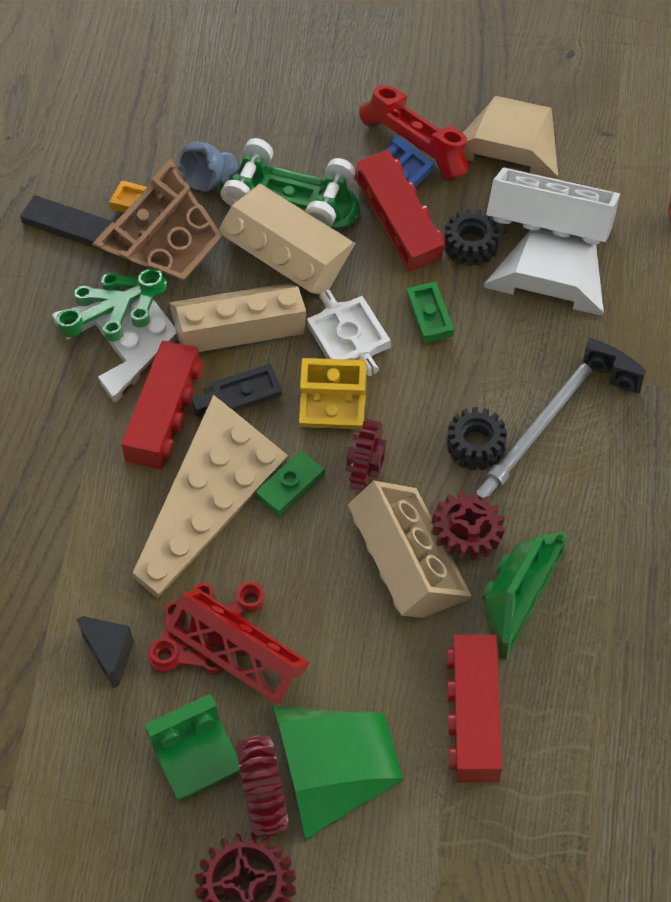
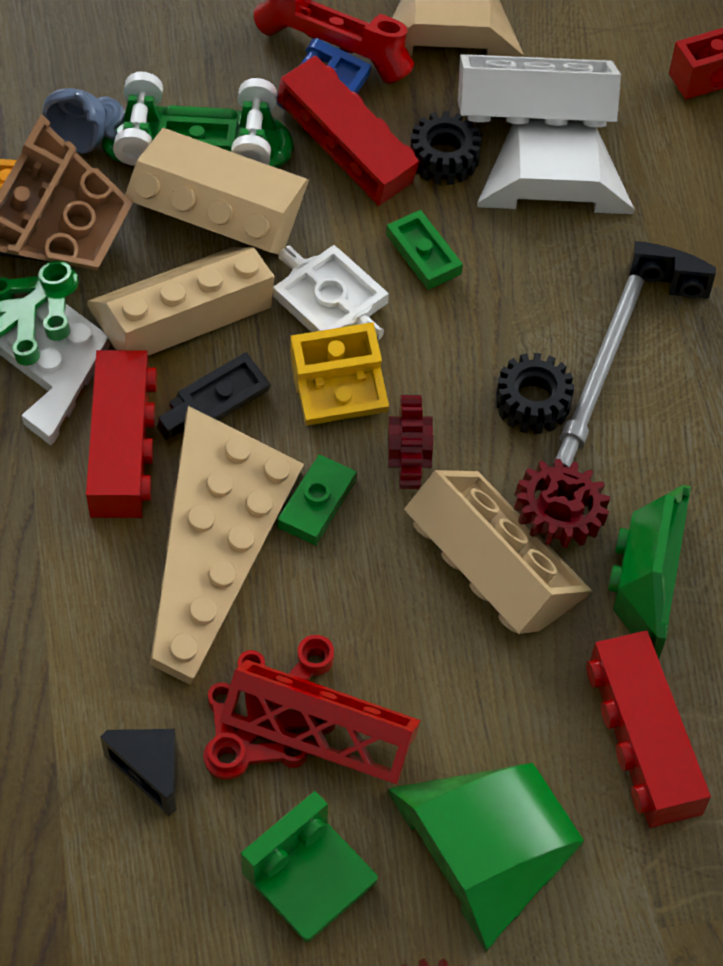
camera: 20 degrees left, 0 degrees up
(262, 785) = (419, 894): dark red gear -> none

